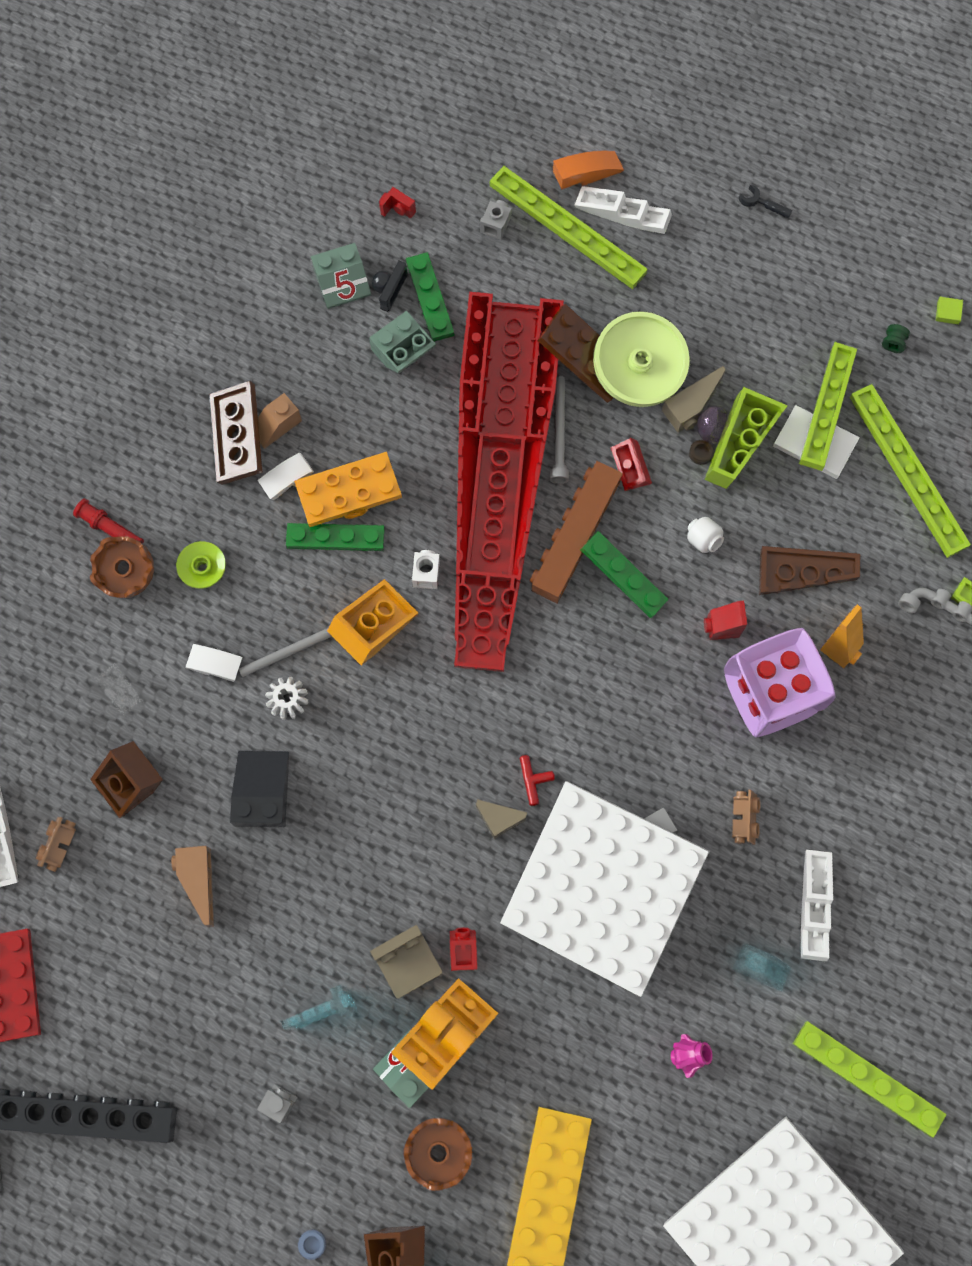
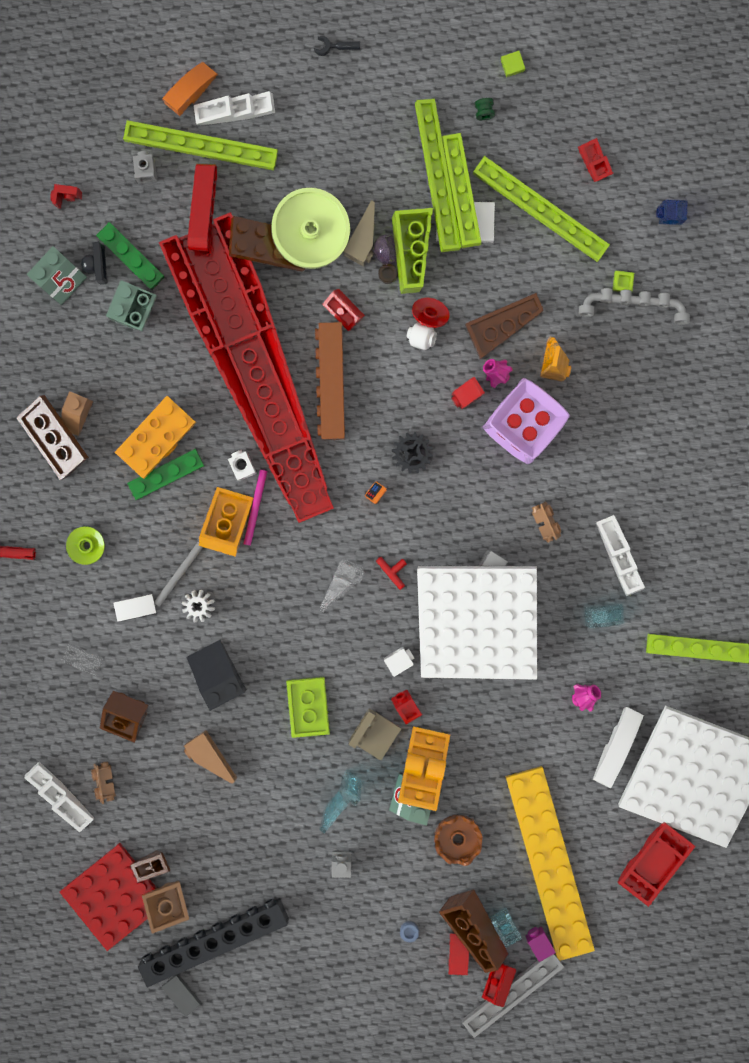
camera: 25 degrees left, 15 degrees up
(35, 1034) = (165, 906): none -> medium nougat slope
(48, 974) = (150, 866): none -> reddish brown slope
(106, 562) = (23, 586): dark orange plate -> none
(284, 475) = (105, 449): white slope -> none
(345, 886) = (308, 707): none -> lime tile
(414, 624) = (255, 507): none -> dark pink bar
(469, 758) = (344, 579): none -> clear slope
(485, 887) = (399, 661): none -> white brick
(499, 818) = (384, 610): dark tan slope -> none
(535, 284) = (202, 207): none -> red beam
(559, 471) = (296, 343): light grey piece -> none
(562, 680) = (375, 492): none -> slope
(622, 646) = (420, 457): none -> black gear
(624, 574) = (380, 396): green plate -> none
(699, 1145) = (618, 747): none -> white slope
(728, 514) = (430, 312): none -> red dish
(772, 615) = (497, 371): none -> dark pink rock
(809, 379) = (437, 175): none -> lime plate

